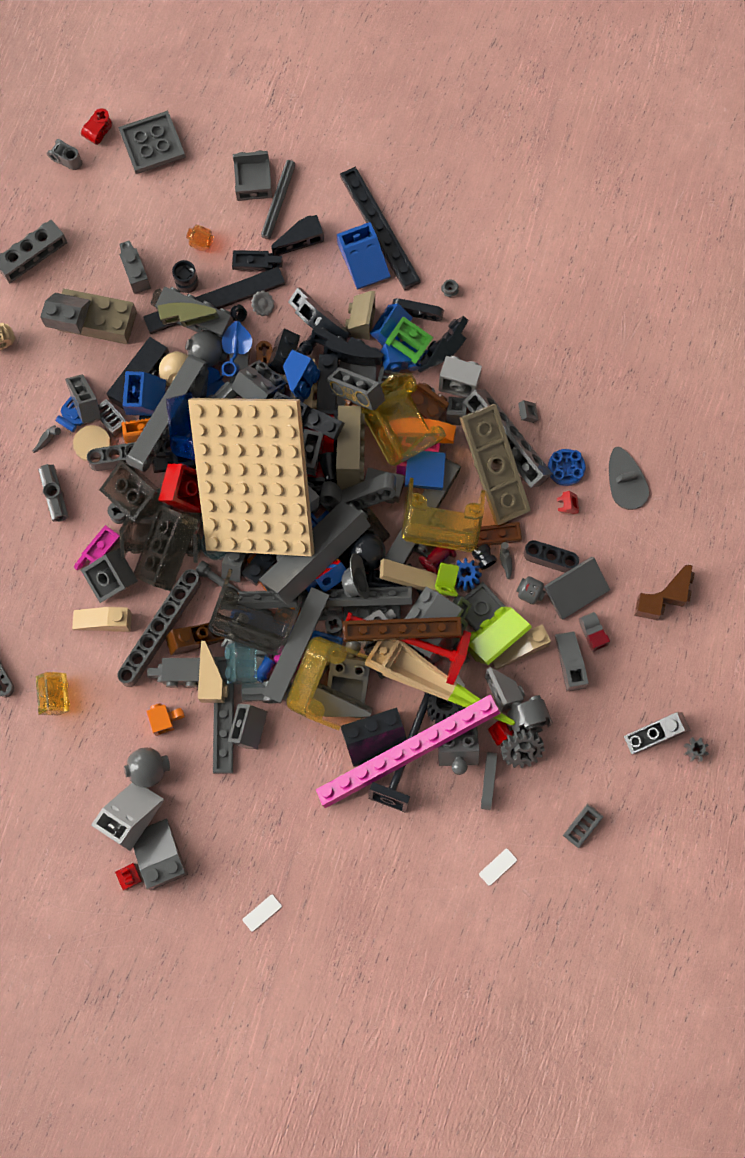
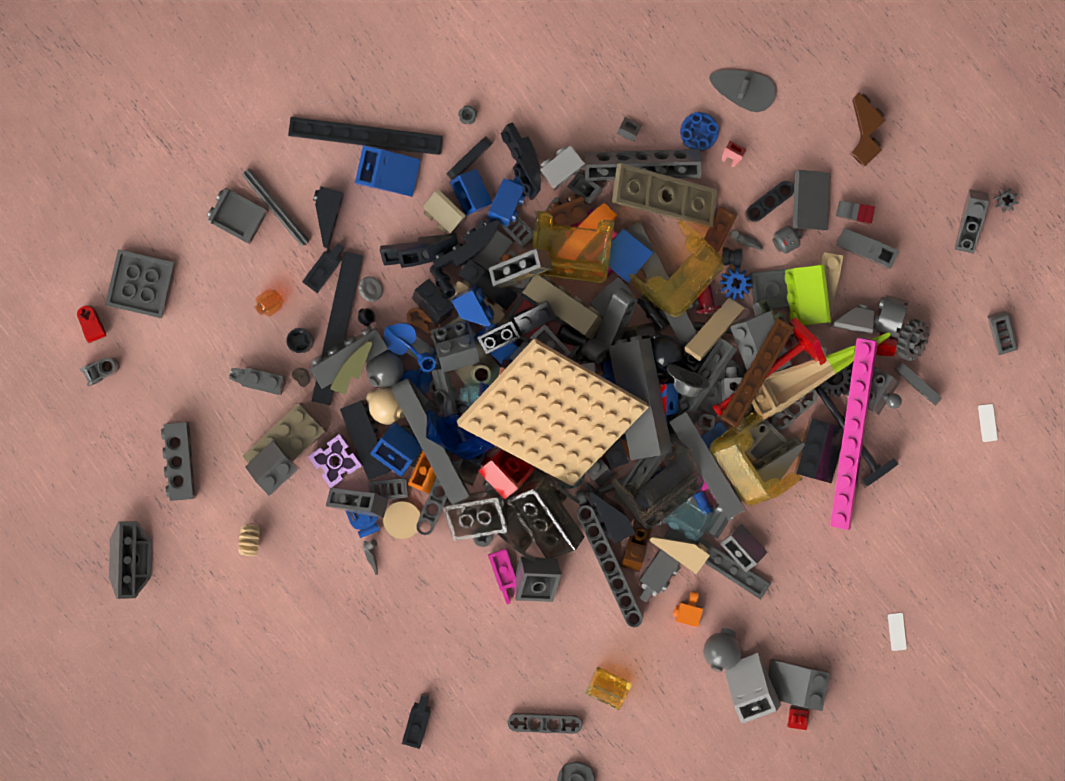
camera: 55 degrees left, 15 degrees up
(50, 483) = (440, 583): dark grey piece -> none
(103, 619) = (569, 609): tan slope -> none
(105, 359) = (324, 458): none -> lavender brick
(202, 594) = (615, 520): none -> black slope
(380, 693) = (787, 422): none -> dark grey beam
(394, 525) = (652, 313): none -> black pin
(413, 336) = (498, 183): bright green plate -> none
(446, 579) = (734, 305): lime bracket -> none

